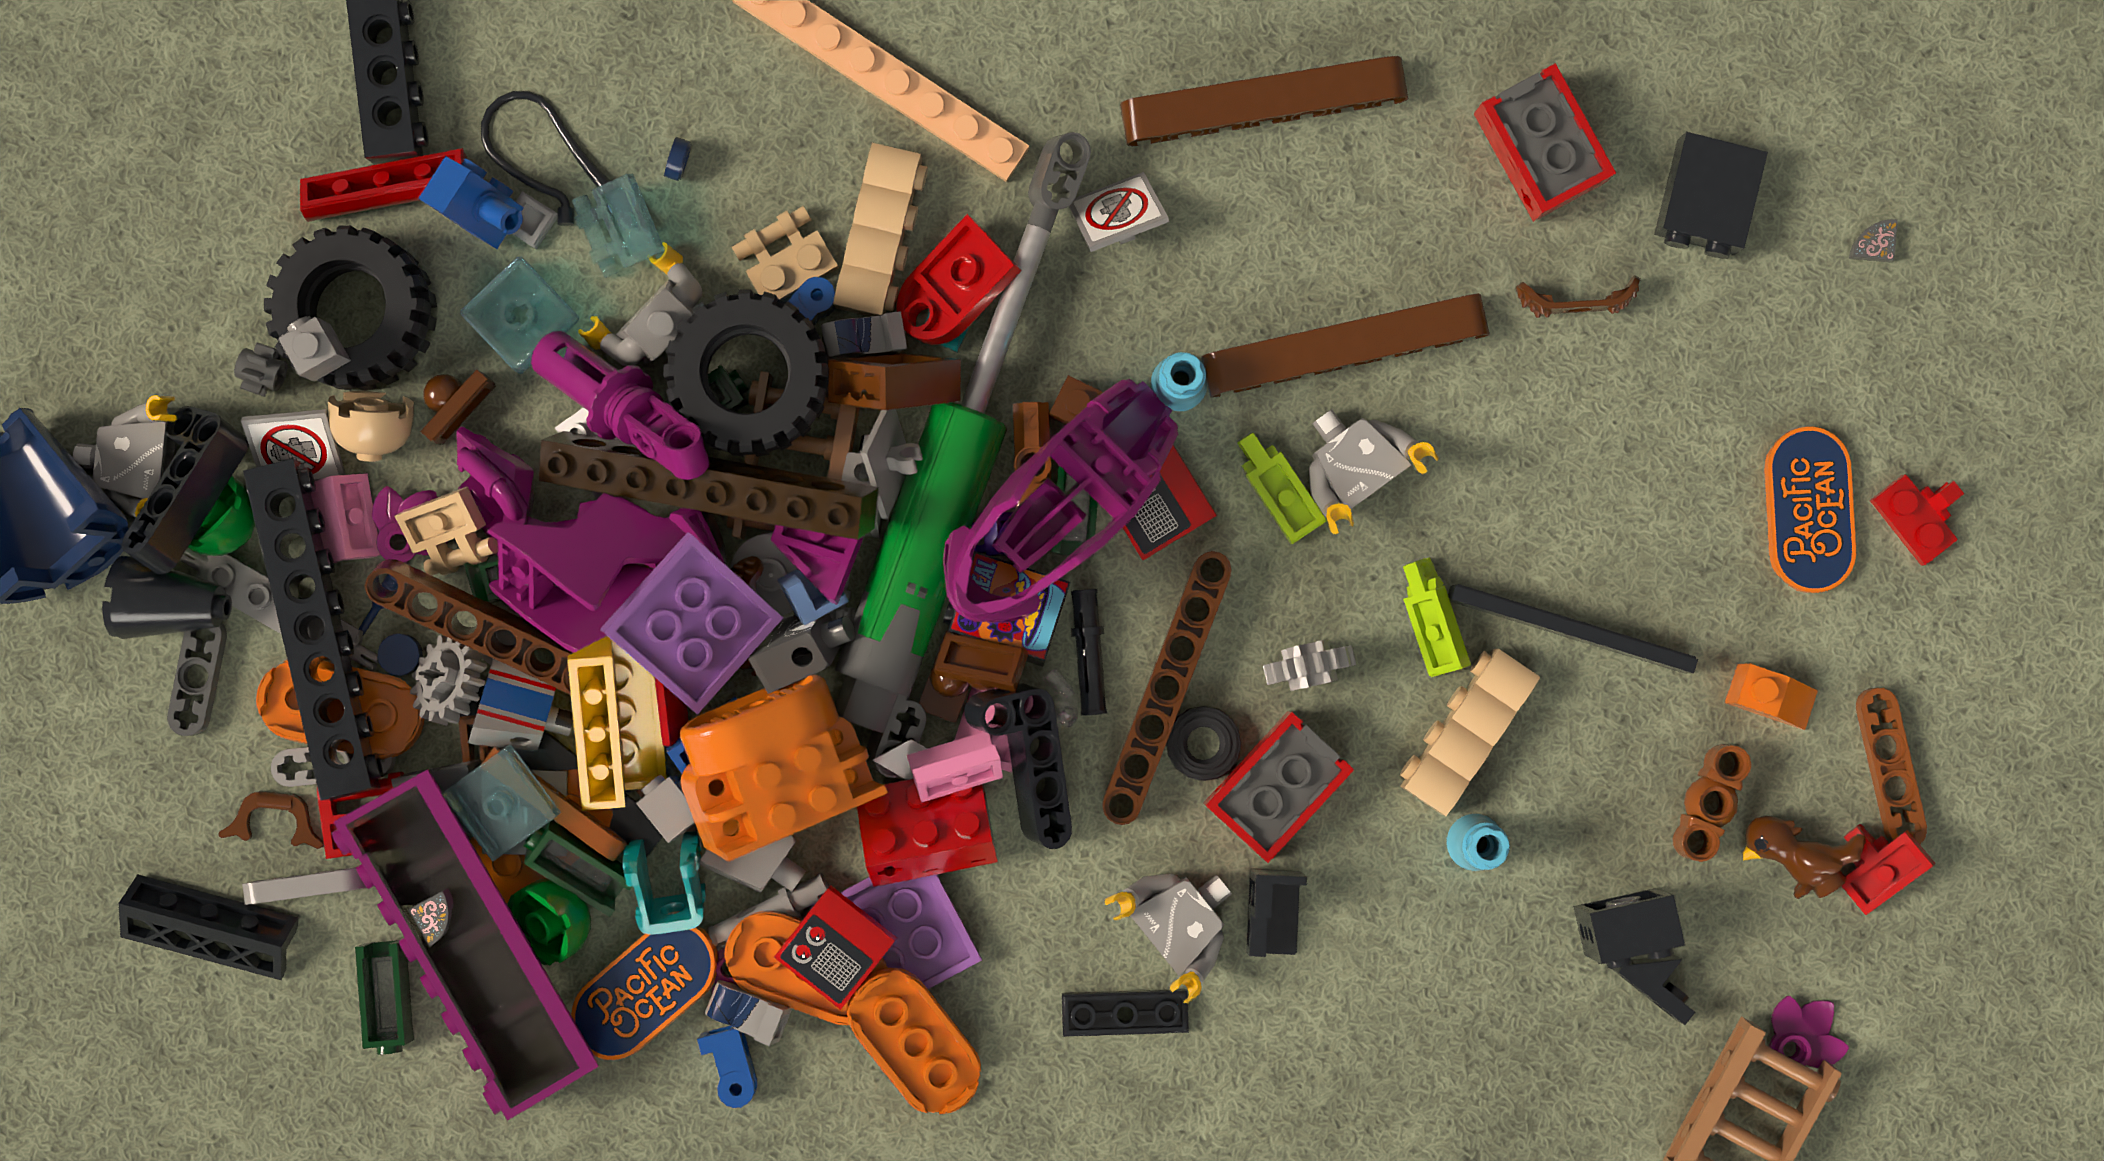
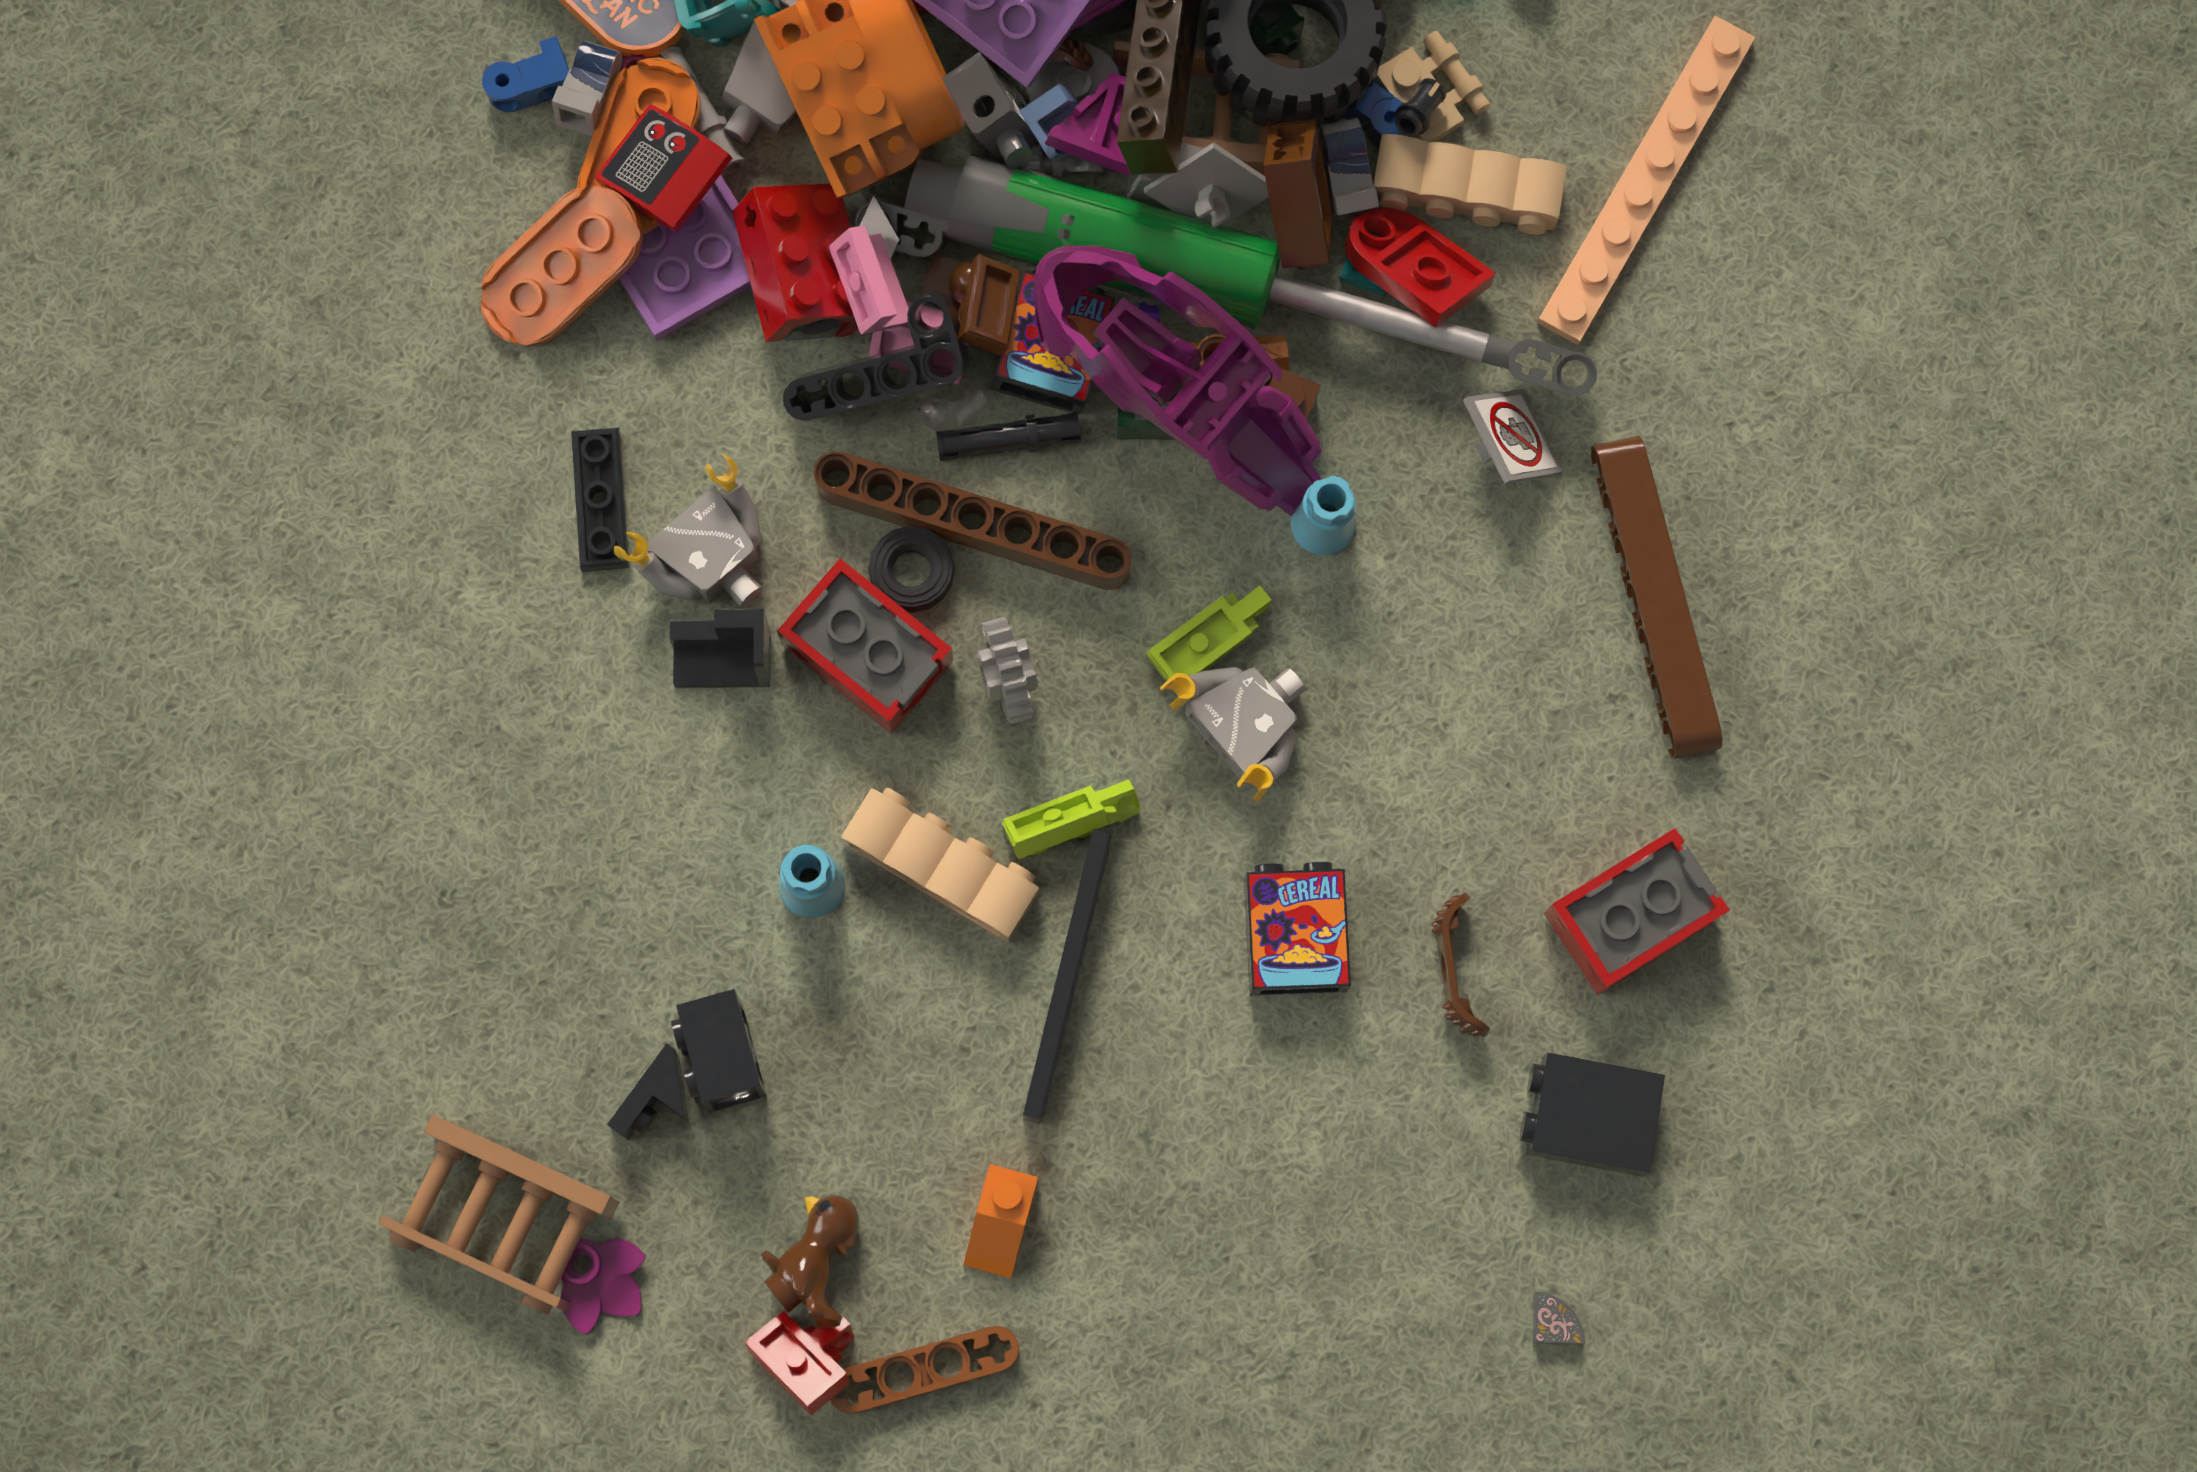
camera: 80 degrees right, 10 degrees down
(820, 272) = (1415, 115): none -> black pin
(1171, 509) = (1182, 506): slope -> none
(1344, 344) = (1383, 702): reddish brown beam -> none
(1541, 431) = (1297, 930): none -> brick
(1724, 786) = (851, 1136): dark orange piece -> none
(1810, 510) = (1227, 1257): tile -> none
(1919, 516) = (1228, 1389): red hinge -> none

